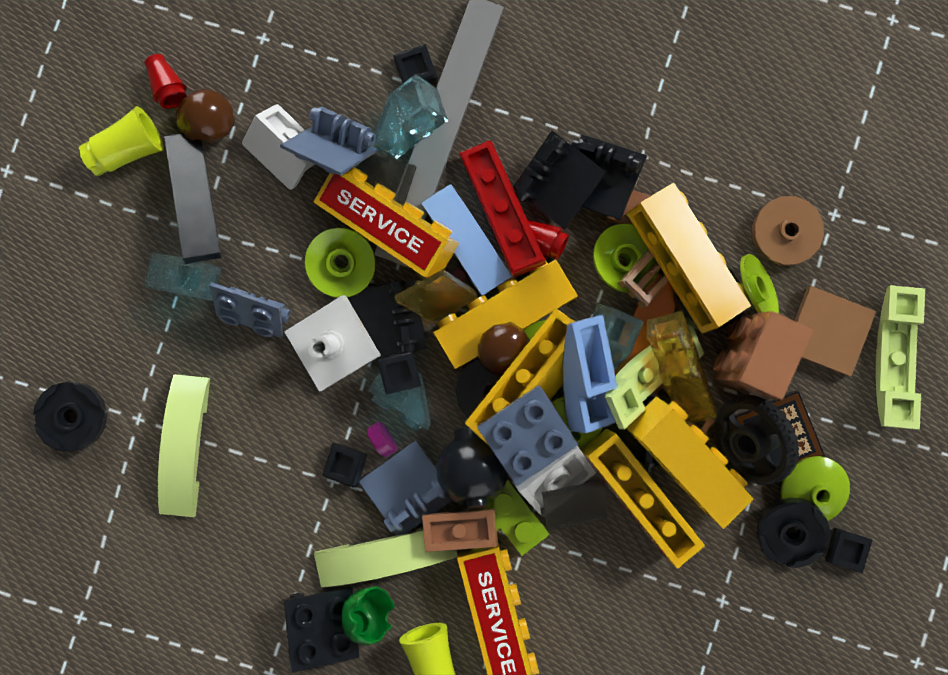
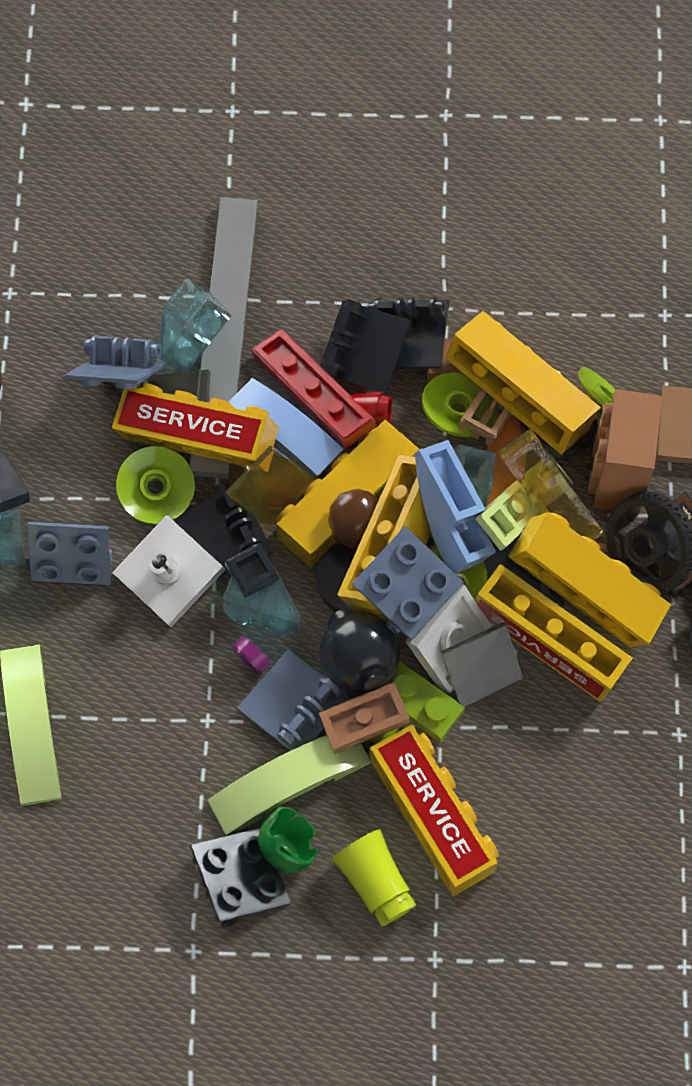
camera: 15 degrees left, 20 degrees down
(264, 140) = (48, 392): white panel -> none
(345, 465) = (217, 694): black tile -> none
(415, 62) = (175, 273): black tile -> none
(770, 234) = (616, 356): medium nougat plate -> none

